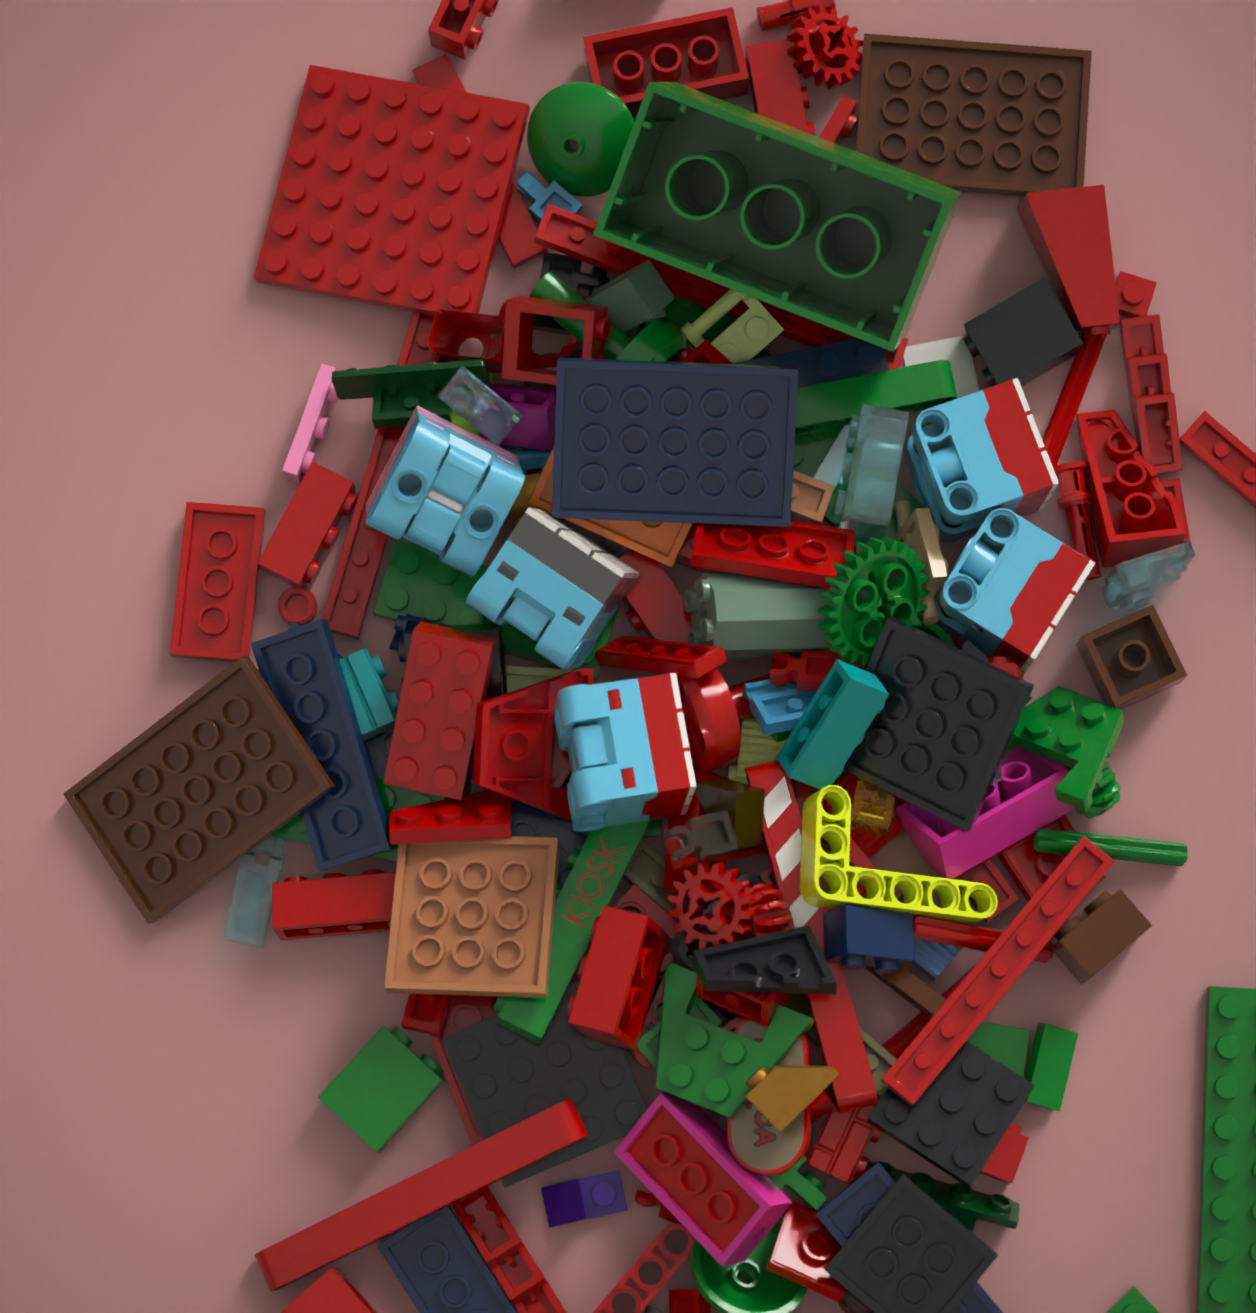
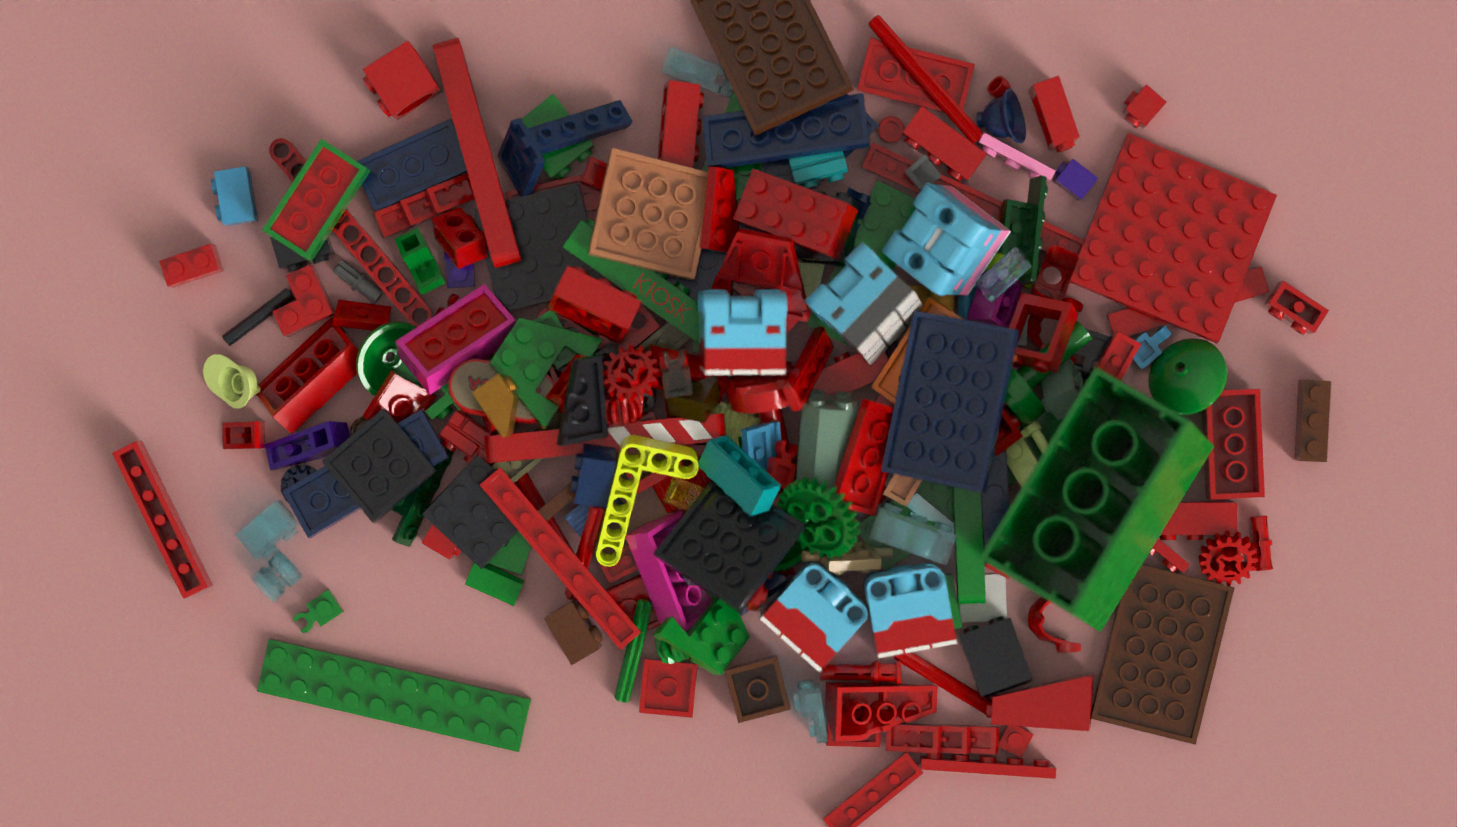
camera: 100 degrees right, 10 degrees up
(213, 262) = (1142, 107): none -> red brick
(215, 463) = (998, 86): none -> red hinge
(217, 565) = (925, 79): none -> red axle
(242, 377) = (1054, 114): none -> red window
(257, 450) = (1003, 117): none -> dark blue hat
(329, 337) = (1074, 179): none -> dark purple brick
(354, 547) = (922, 172): none -> dark grey panel
(406, 1122) = (524, 146): none -> dark blue bracket
(551, 1199) = (459, 237): none -> red brick
(595, 1254) = (420, 260): none -> green brick
(964, 292) = (1035, 622): none -> red helmet
(1154, 789) = (668, 688): none -> red plate
(1176, 323) = (988, 765): none -> red plate

